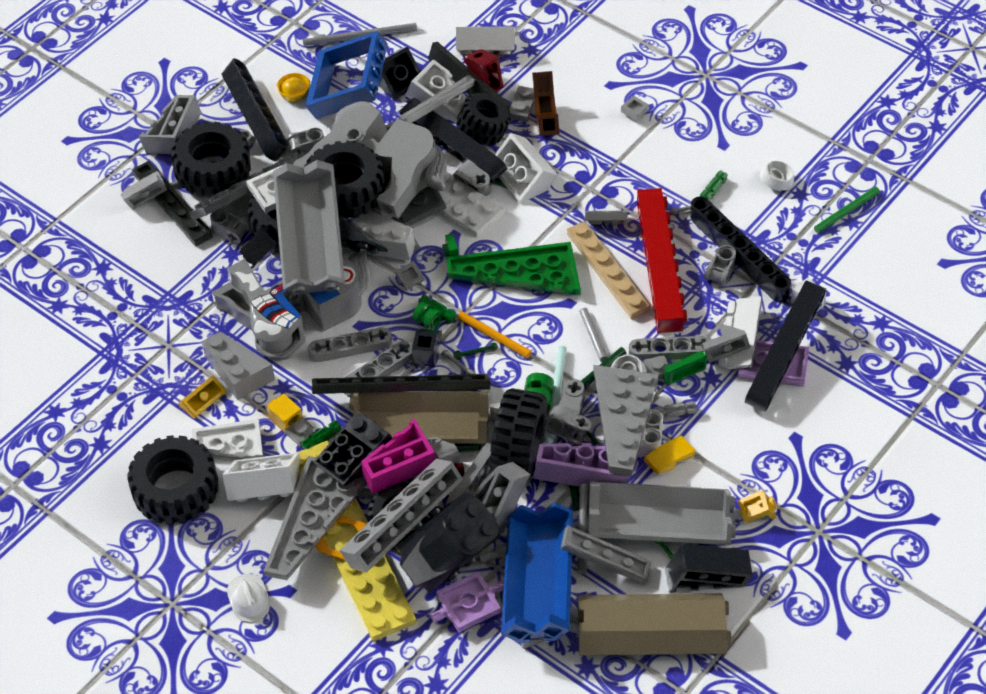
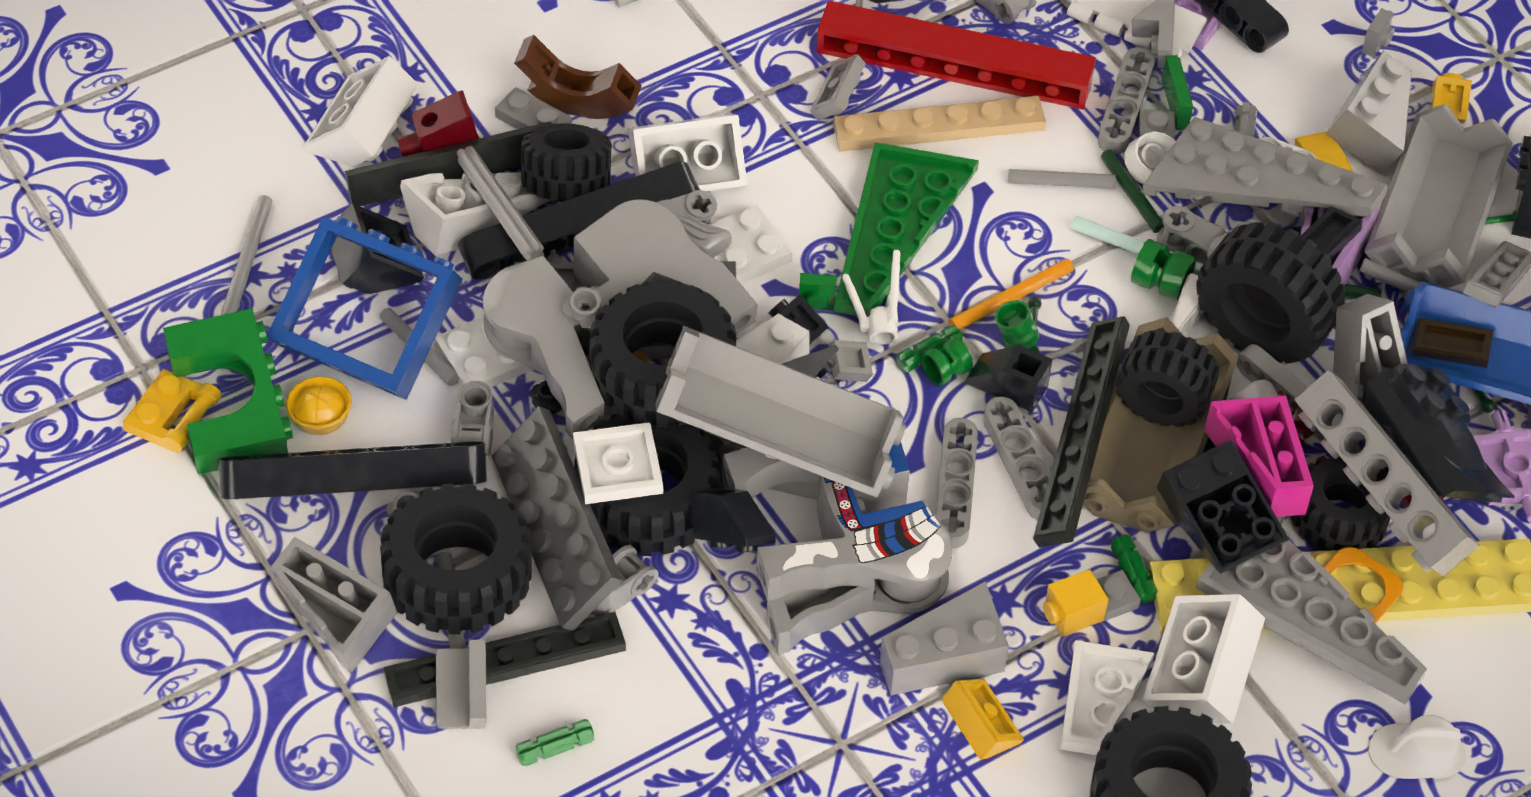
camera: 75 degrees left, 0 degrees up
(128, 234) = (554, 742): none -> axle
(270, 68) = (234, 344): none -> green arch
(271, 39) = (162, 406): none -> yellow plate
(426, 246) = (802, 314): none -> black bracket
(440, 280) = (882, 320): none -> white plant
(441, 405) = (1167, 378): none -> black tyre
(464, 338) = (1016, 324): none -> green wheel
(540, 542) = (1452, 342): none -> dark brown tile
(580, 453) = (1333, 231): none -> black tile
(717, 464) = (1376, 114): none -> light grey wedge
(793, 456) = (1378, 33): none -> light grey plate

